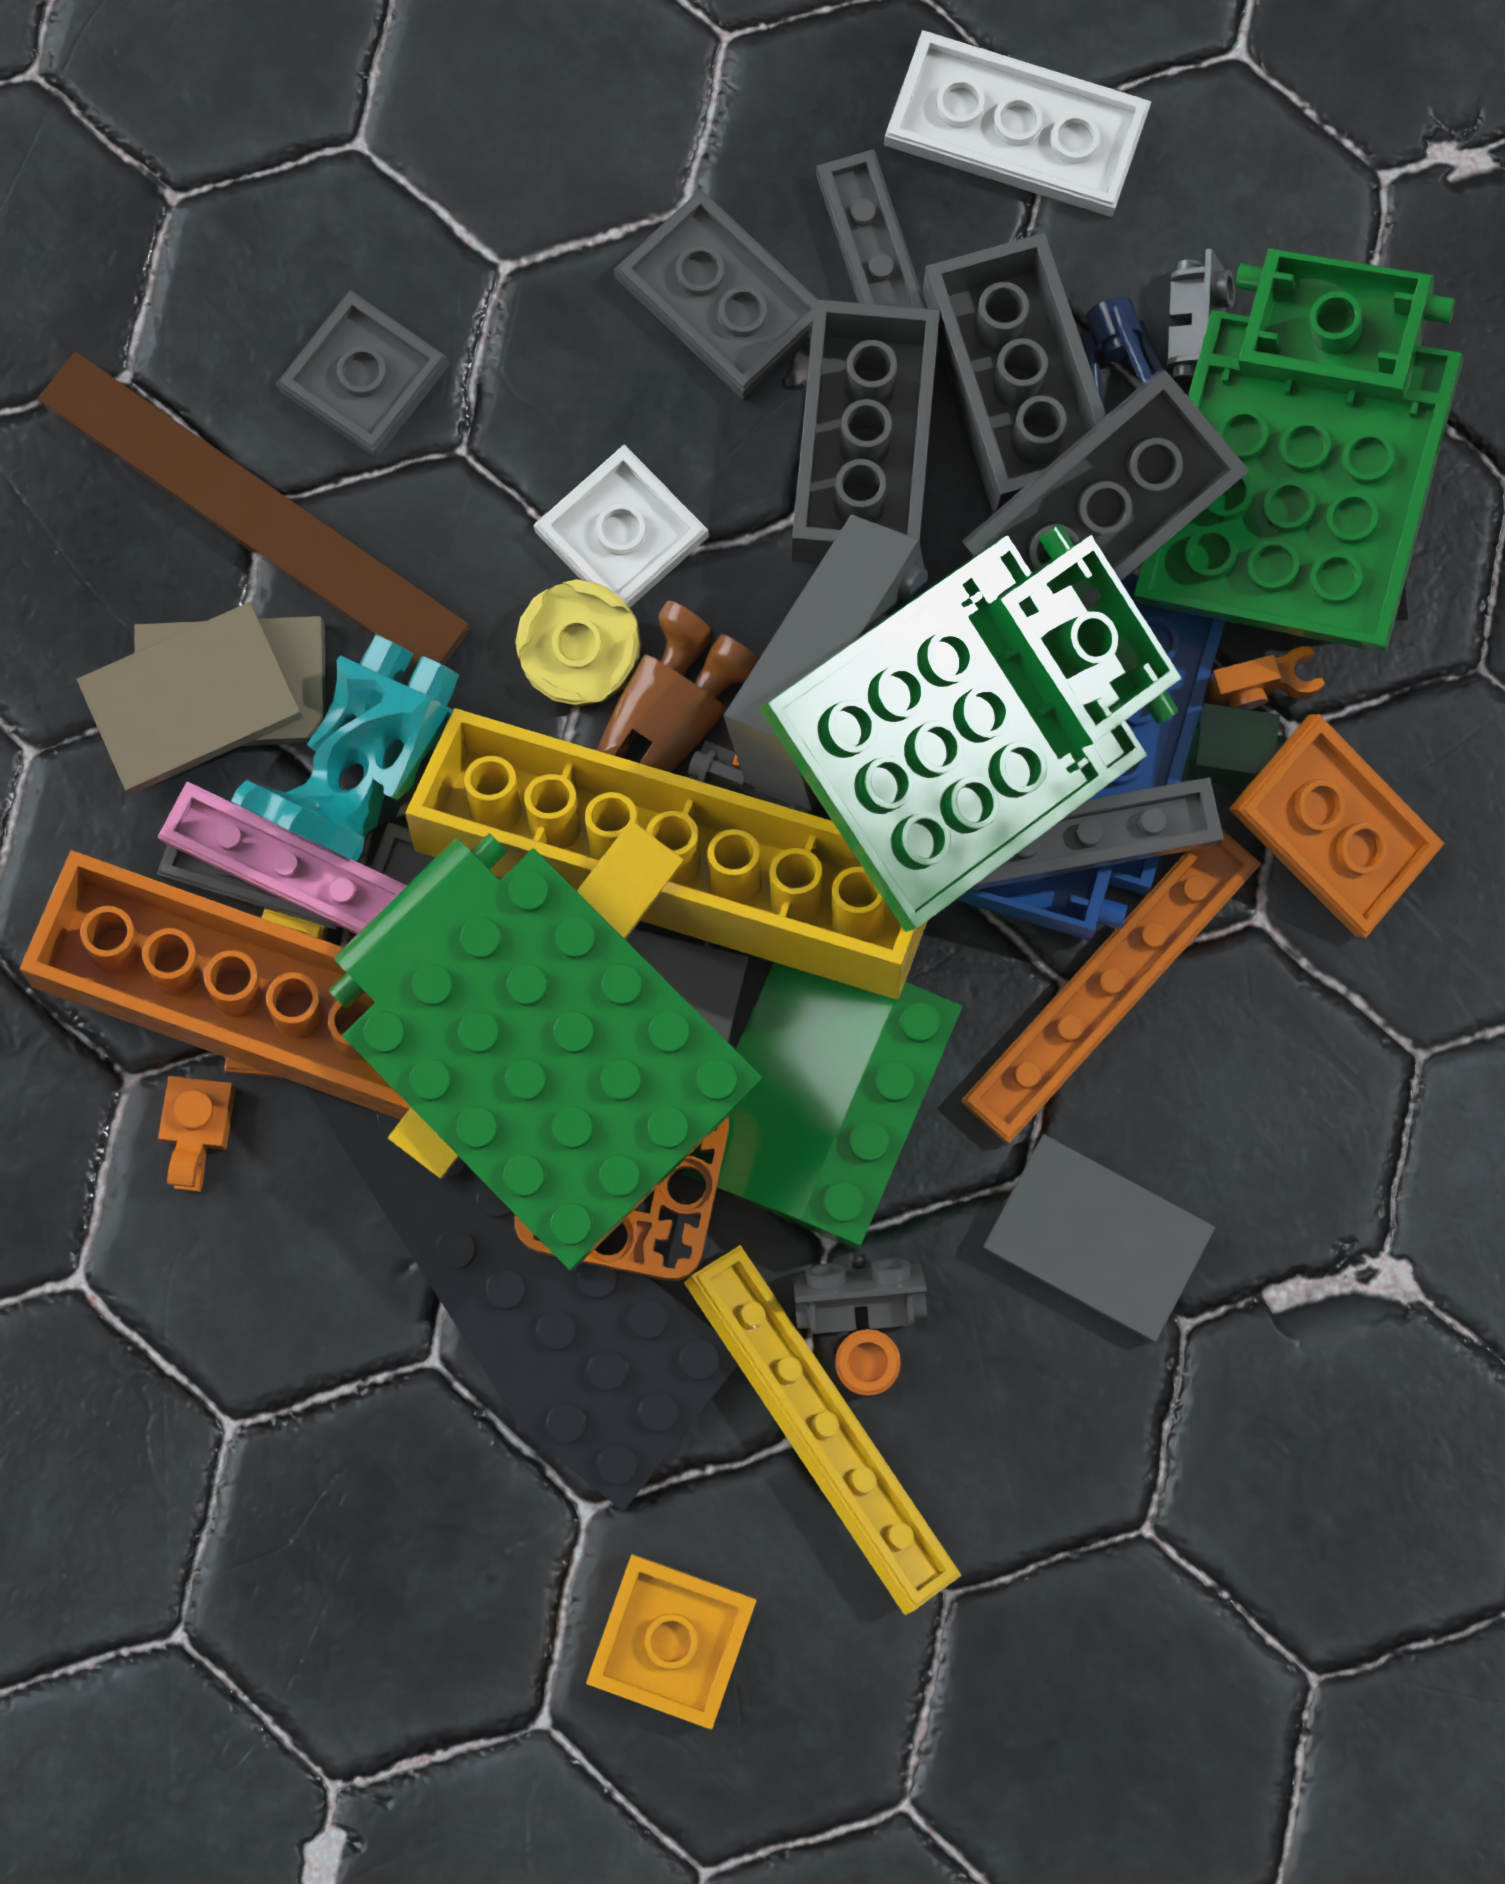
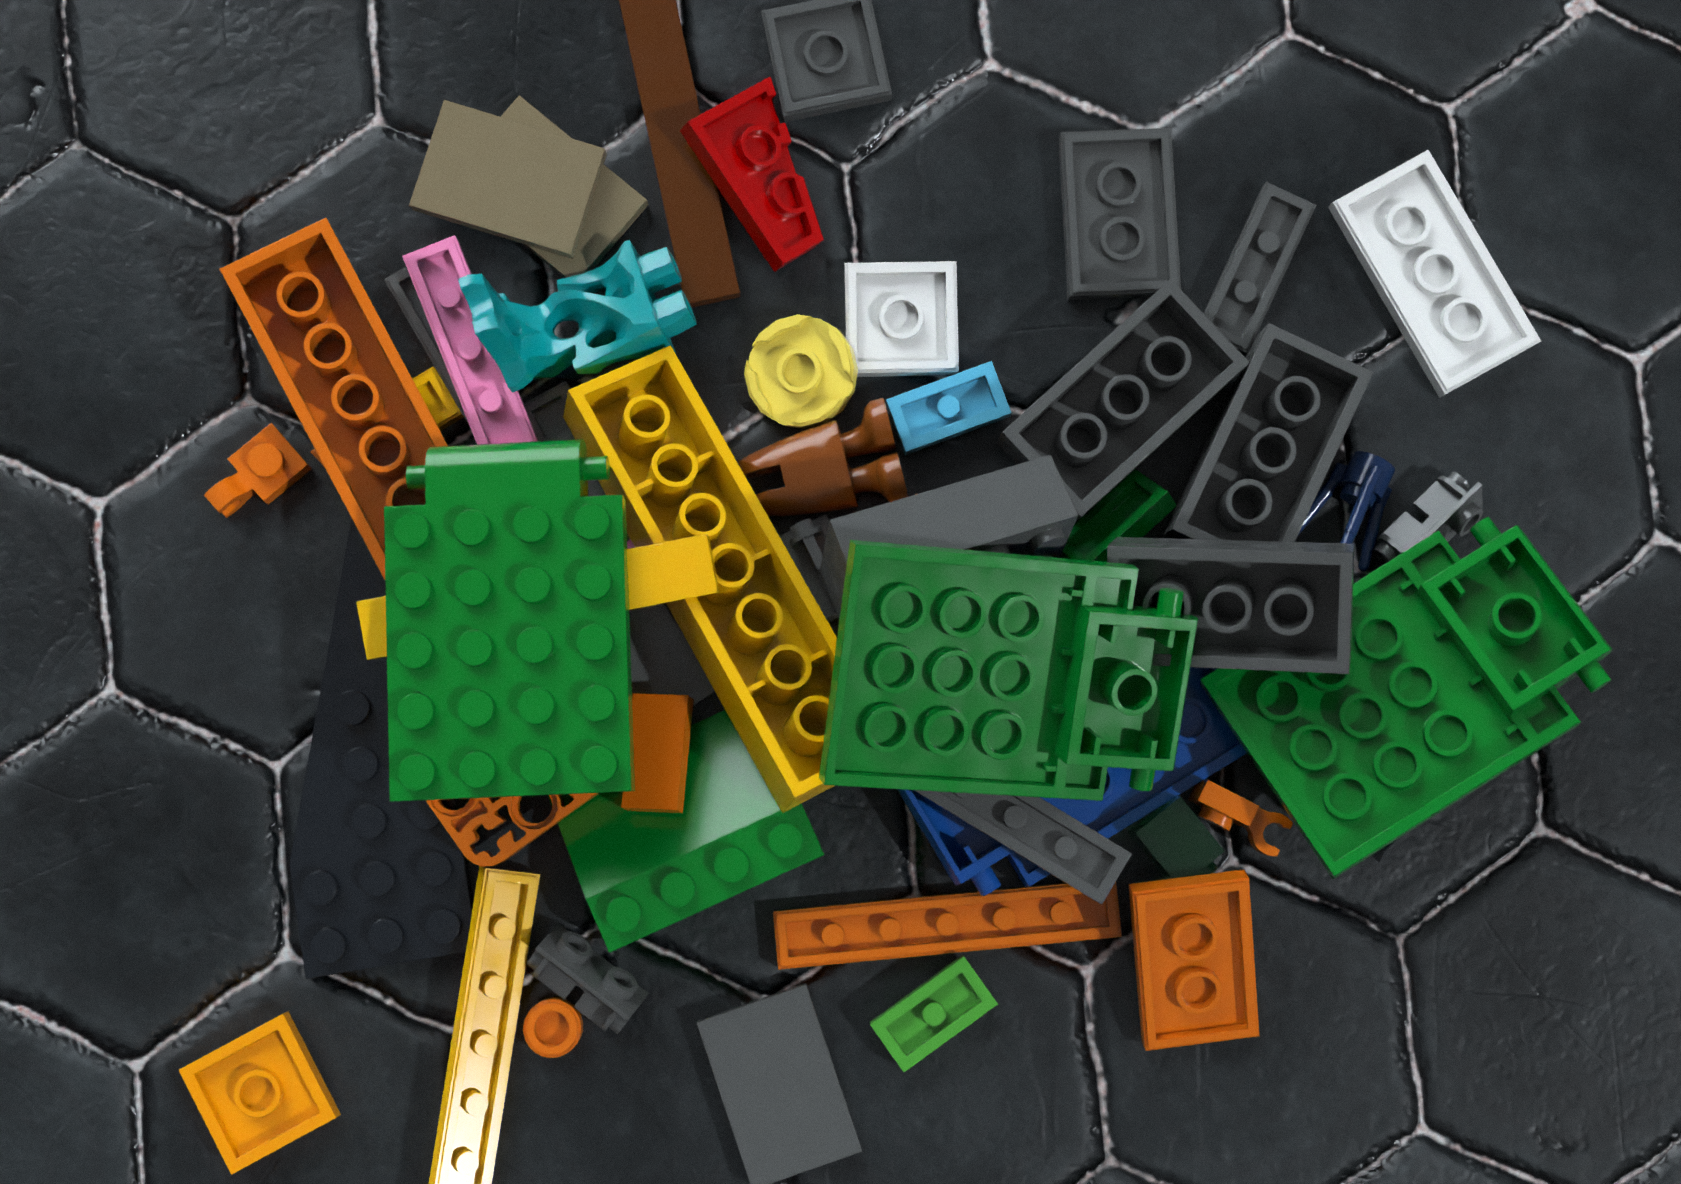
camera: 35 degrees right, 5 degrees up
(383, 513) = (752, 168): none -> red wing
(728, 564) = (948, 408): none -> medium azure plate
(760, 1045) = (660, 752): none -> orange tile
(949, 515) = (1124, 512): none -> green tile
(1168, 1062) = (933, 1013): none -> bright green plate

